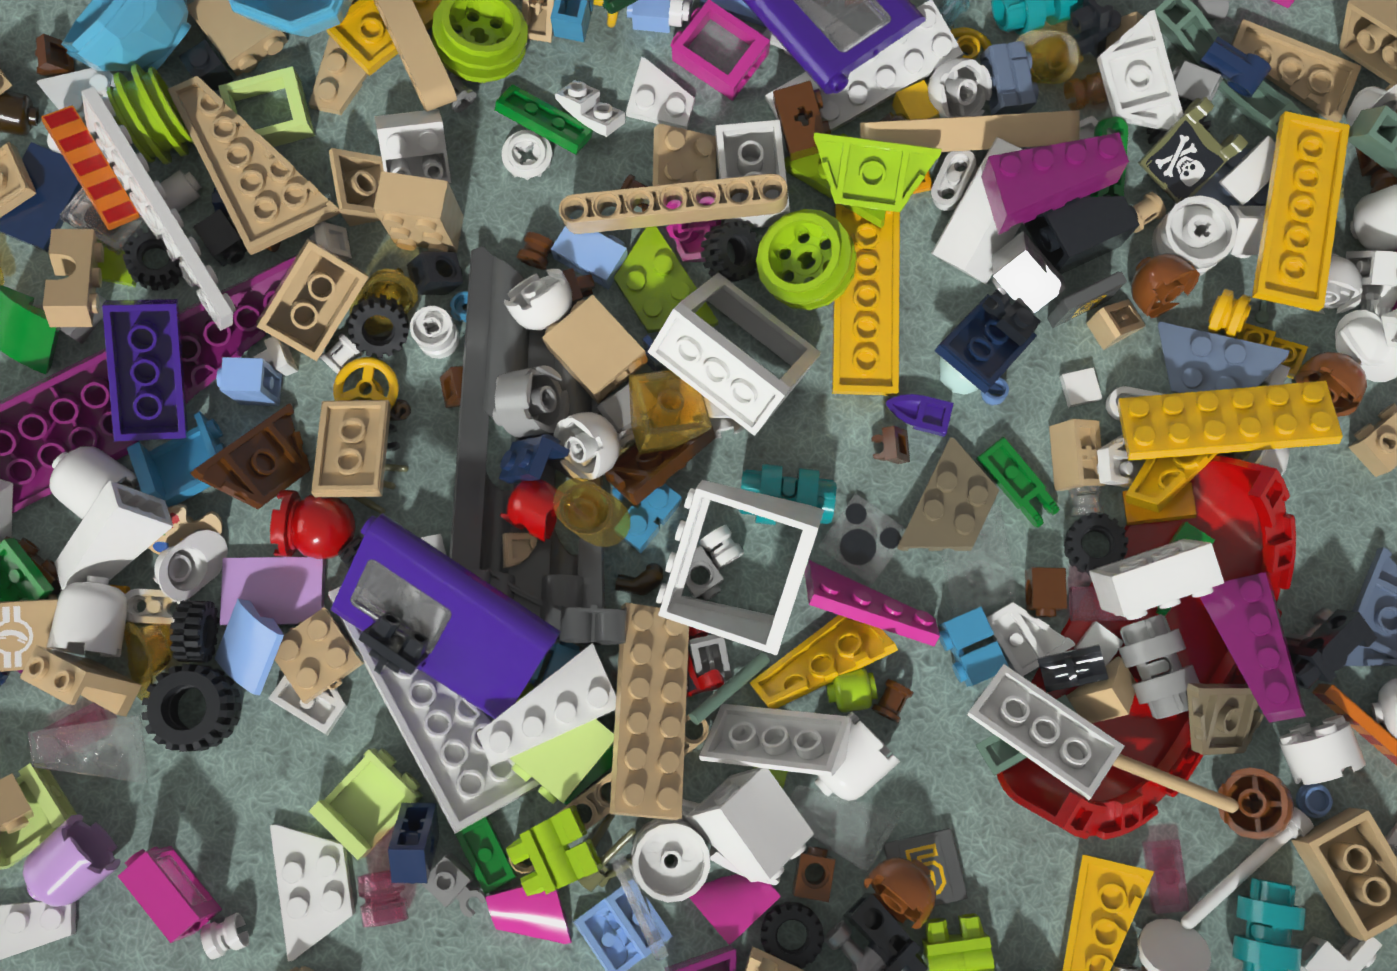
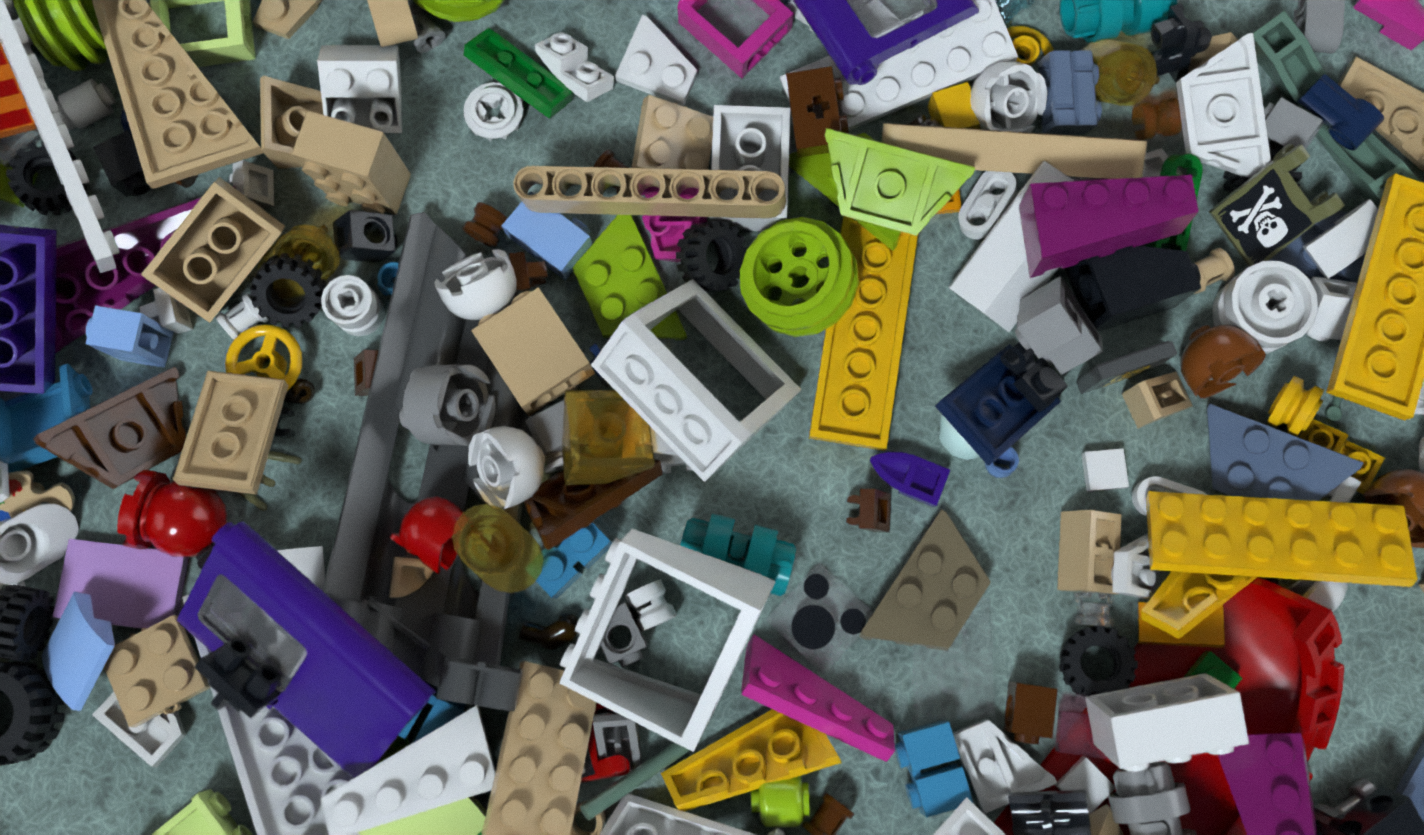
camera: 10 degrees right, 0 degrees up
(528, 458) = (434, 470): dark blue bracket -> none
(1016, 480) = (1013, 571): green hinge -> none

